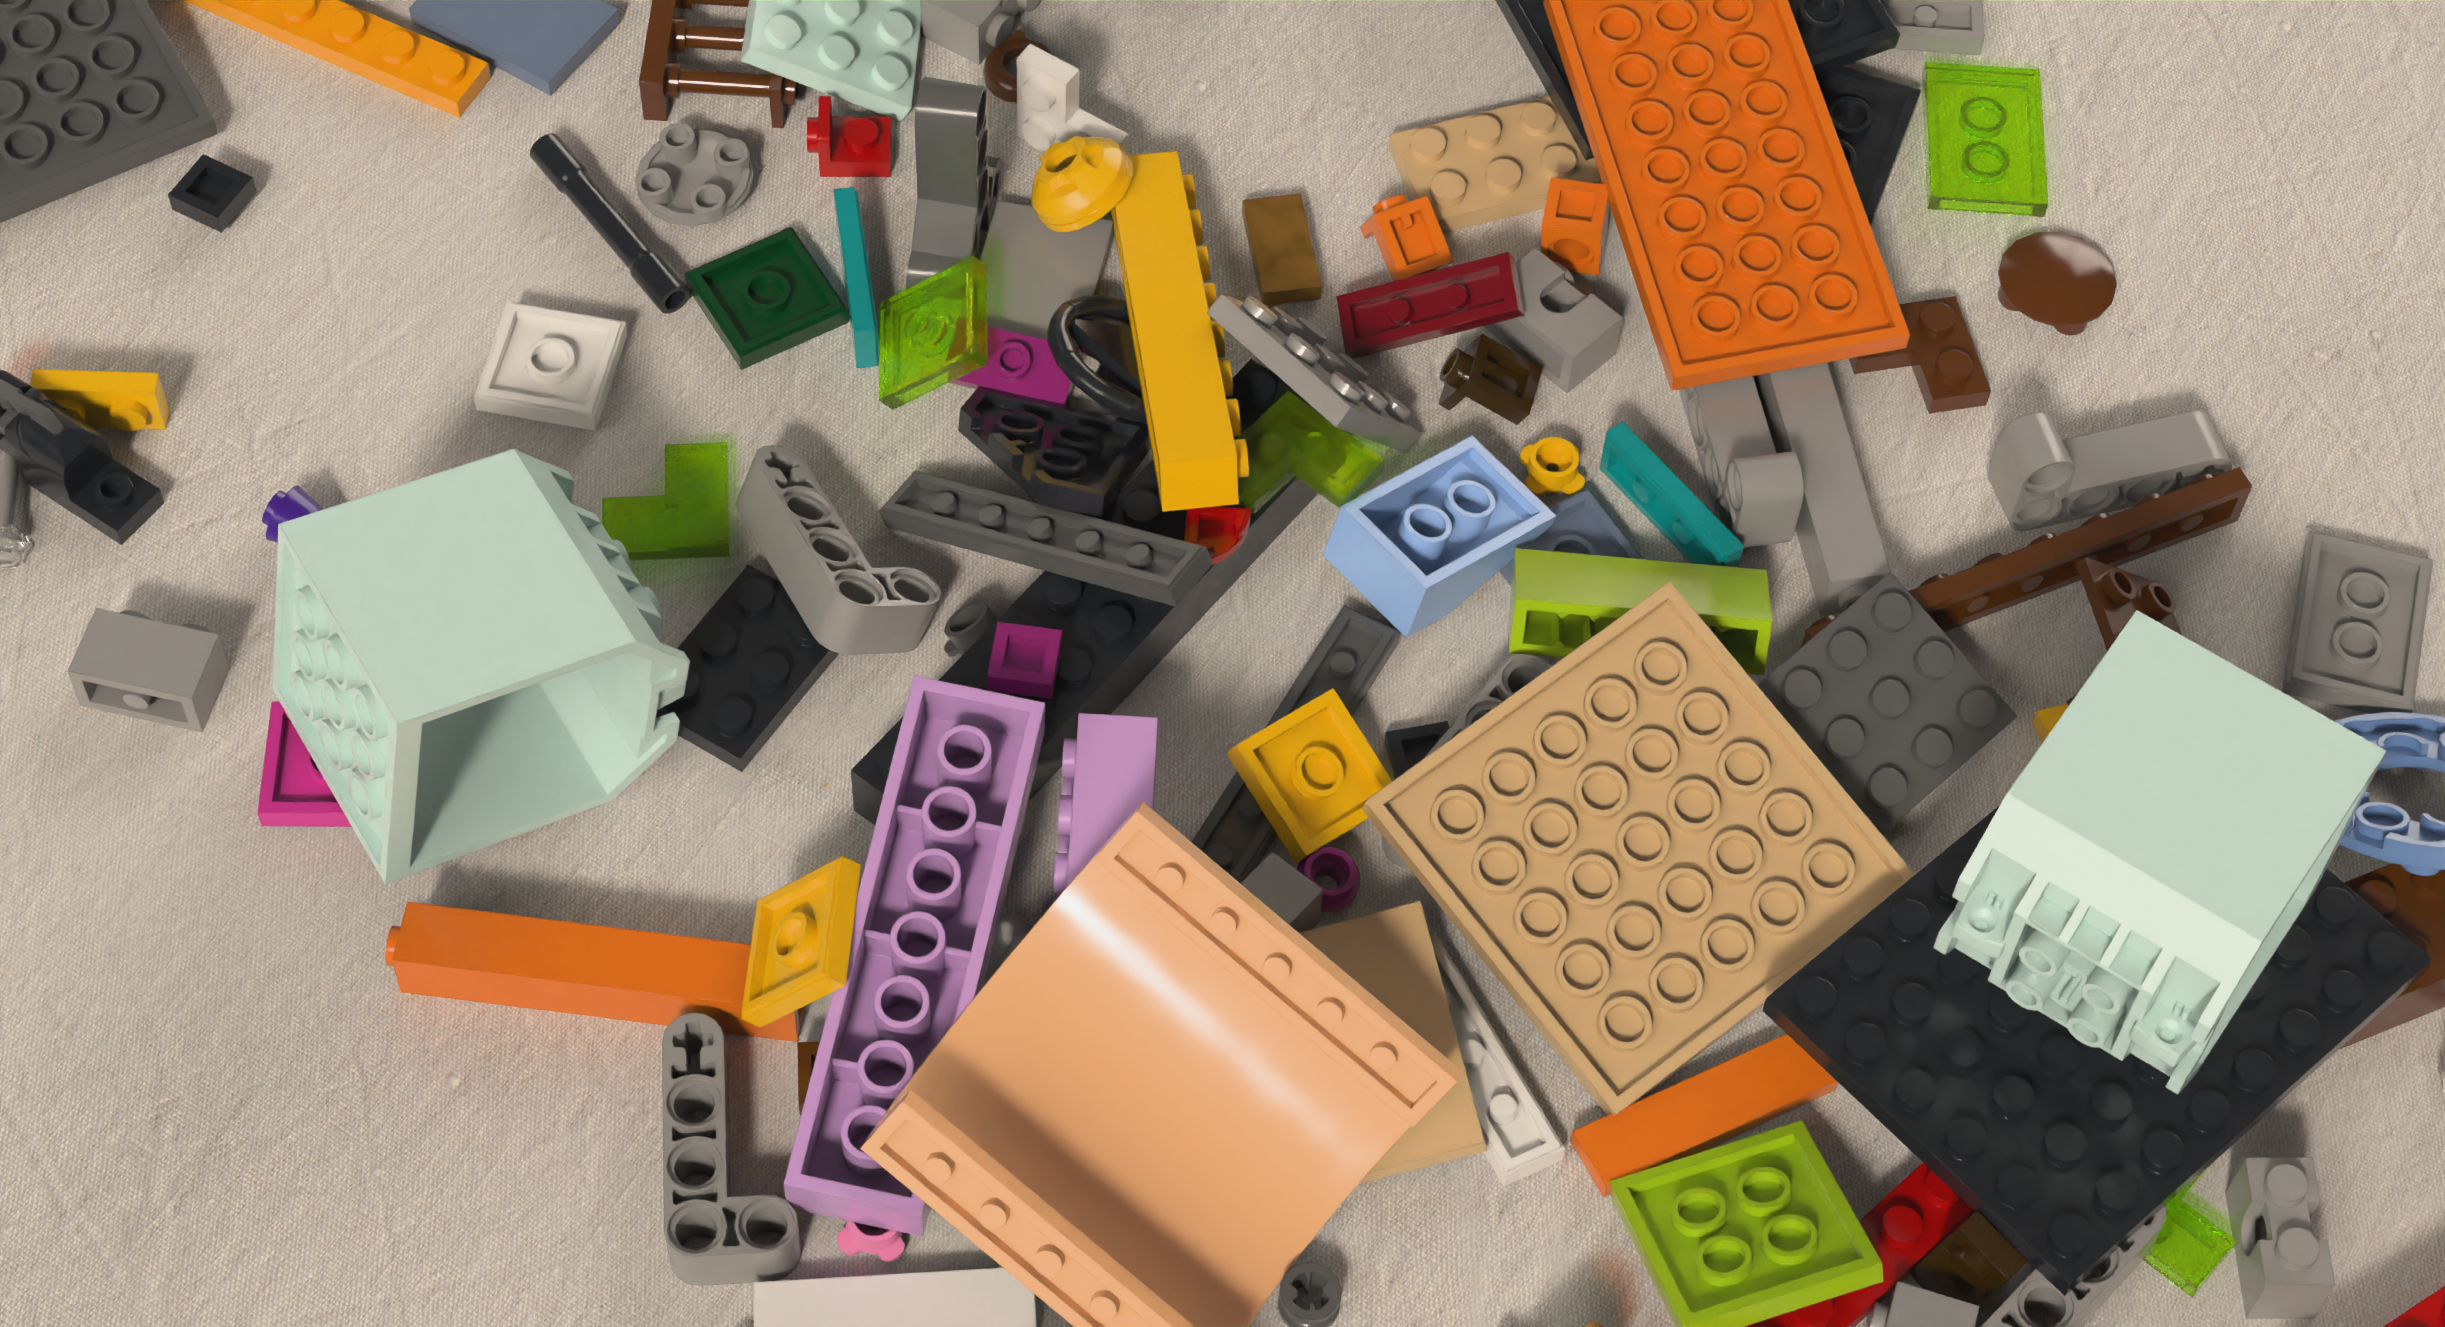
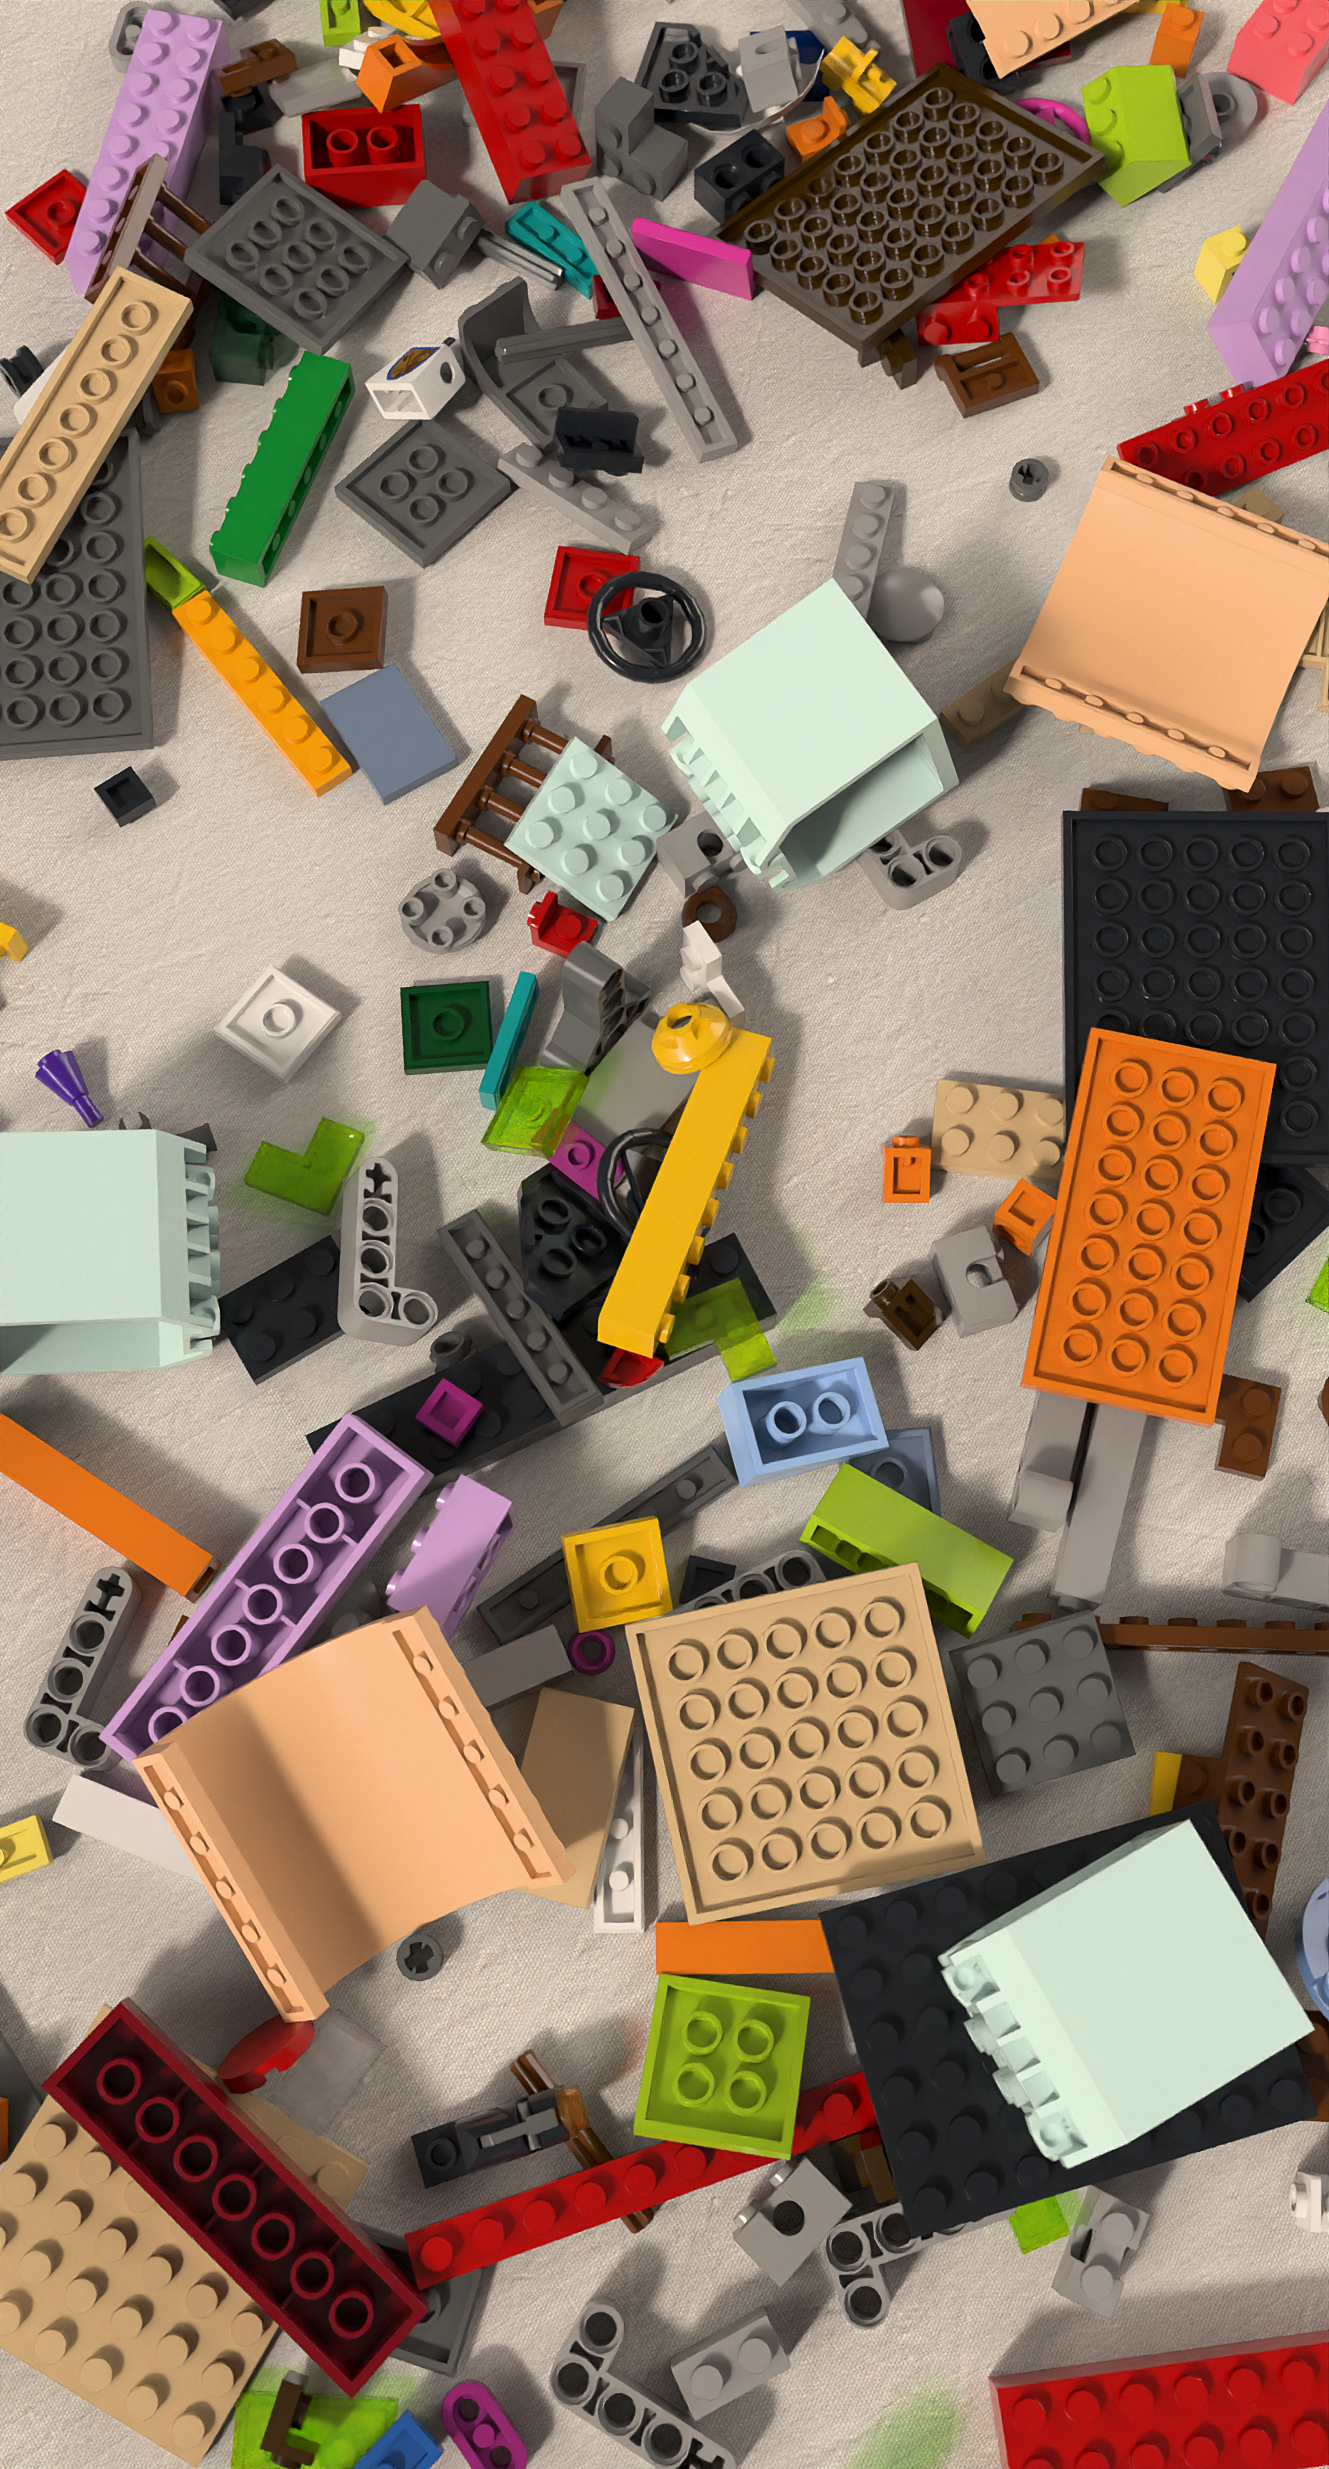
camera: 30 degrees right, 15 degrees up
(645, 265) = (378, 971): black piece -> none
(801, 942) = (196, 1562): yellow tile -> none
(1281, 249) = (815, 1138): pearl gold tile -> none
(1323, 380) = (770, 1266): light grey plate -> none
(1430, 305) = (887, 1239): dark red plate -> none
(1555, 454) = (925, 1391): yellow plate -> none
(1667, 500) = (978, 1470): teal tile -> none

